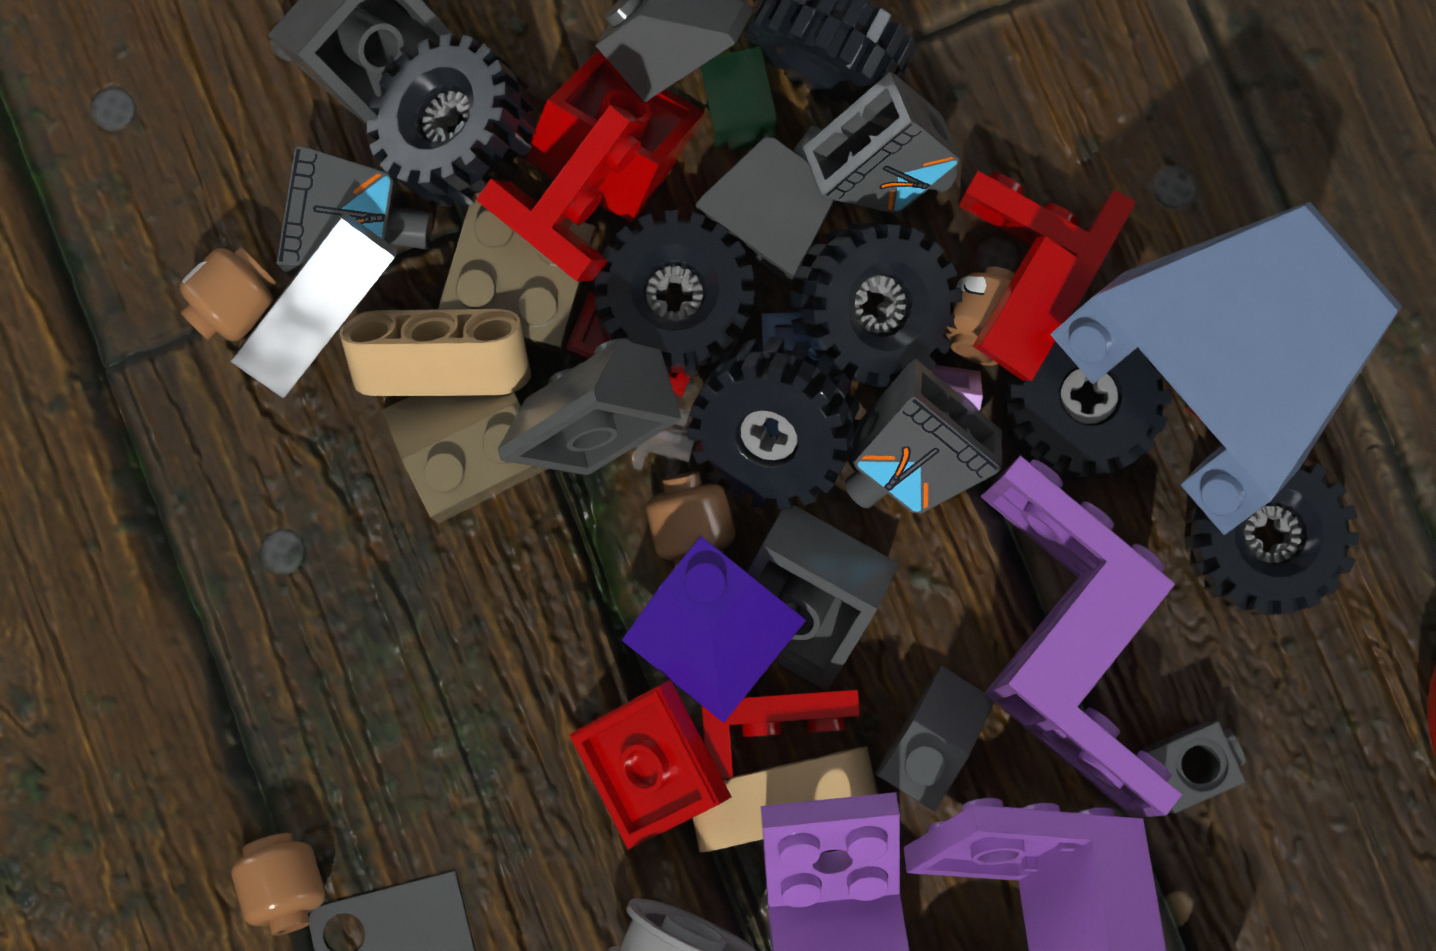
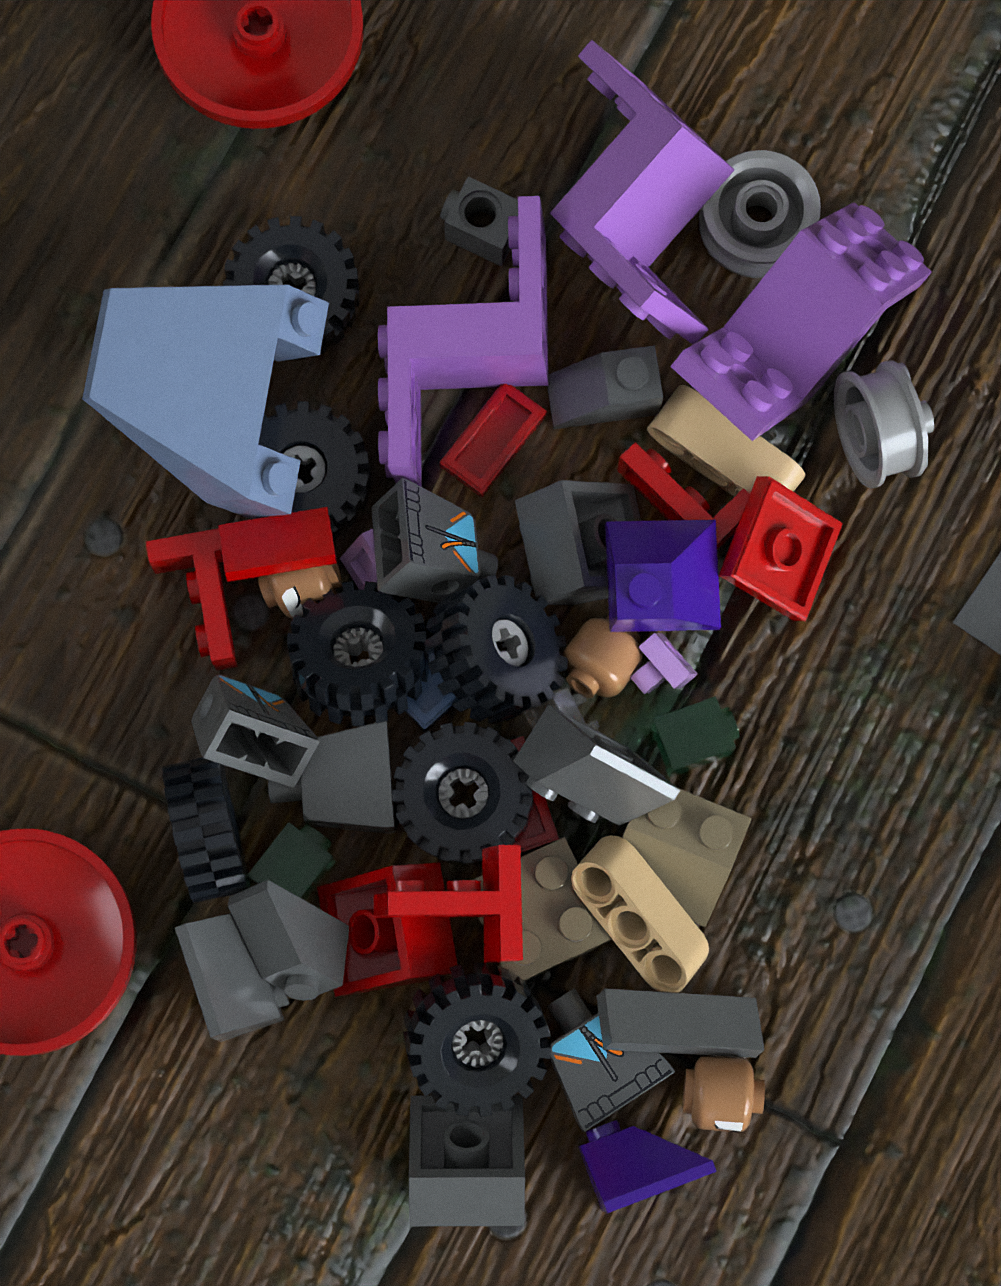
camera: 130 degrees left, 5 degrees down
(224, 168) = (636, 1165): none -> dark purple slope
(550, 541) = (694, 736): none -> clear green brick
(637, 571) = (664, 664): none -> lavender tile
(976, 601) = (493, 439): none -> red tile

